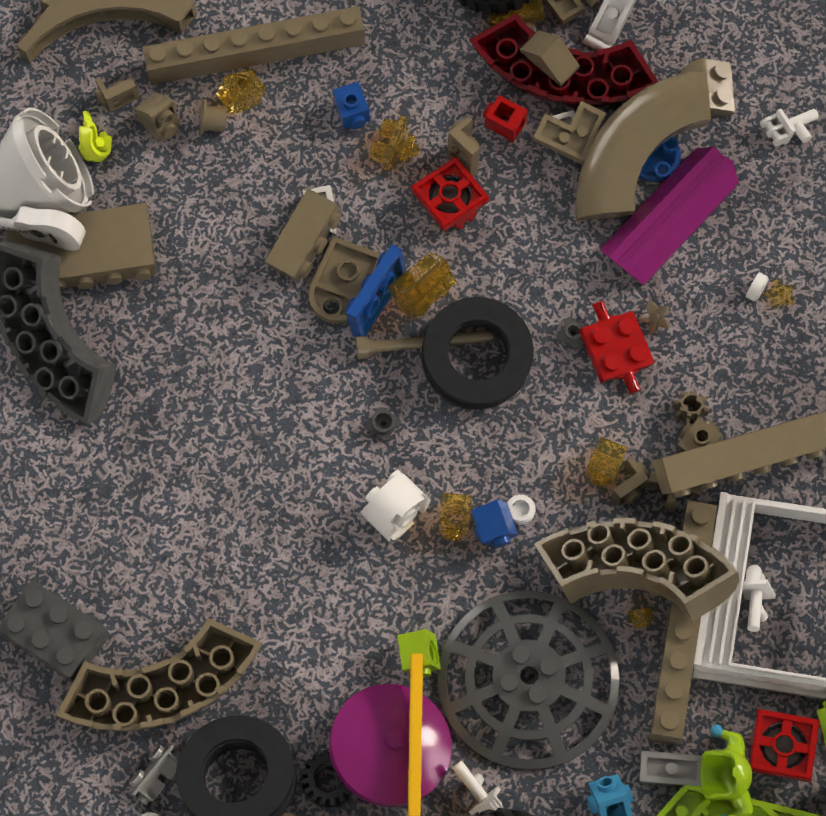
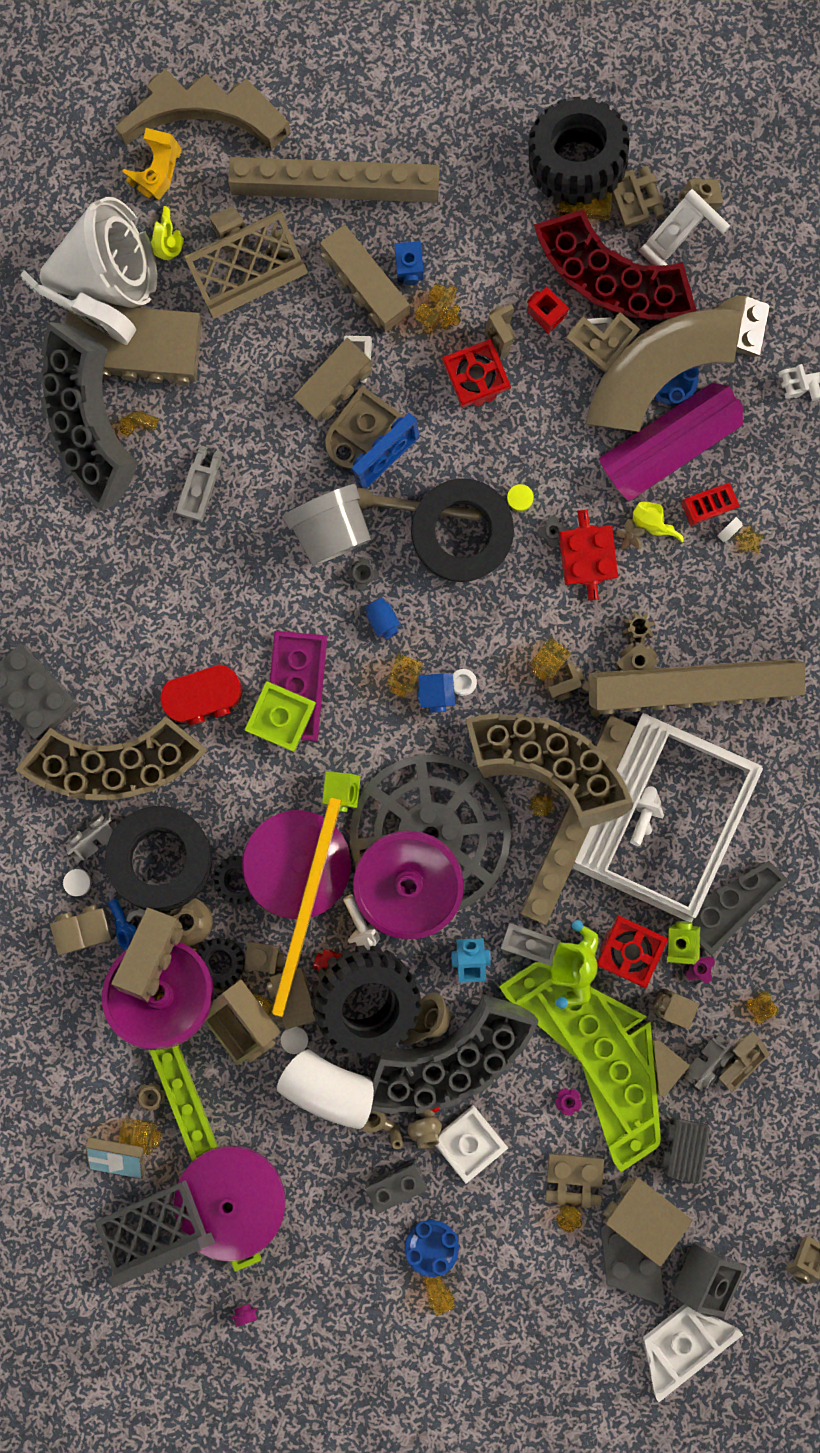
camera: 10 degrees right, 15 degrees up
(74, 55) = (165, 152): none -> yellow tile
(102, 325) = (135, 420): none -> clear yellow arm
(118, 95) = (199, 198): dark tan bracket -> none
(185, 377) = (199, 486): none -> light grey hinge
(193, 166) = (251, 287): none -> dark tan fence
(241, 91) = (311, 223): clear yellow brick -> none
(241, 589) = (202, 695): none -> red brick
(309, 131) = (364, 278): none -> dark tan brick
(333, 590) = (280, 716): none -> lime plate
(336, 377) = (329, 524): none -> light grey piece
(341, 557) = (300, 668): none -> magenta tile
(394, 506) = (353, 655): white brick -> none
(416, 463) = (382, 619): none -> blue brick
(422, 285) = (429, 453): clear yellow brick -> none
(520, 731) = (408, 885): none -> magenta dish
(529, 308) = (520, 498): none -> neon yellow tile
(551, 56) = (603, 261): dark tan slope -> none
(672, 294) = (651, 517): none -> neon yellow piece
(718, 285) = (691, 512): none -> red slope

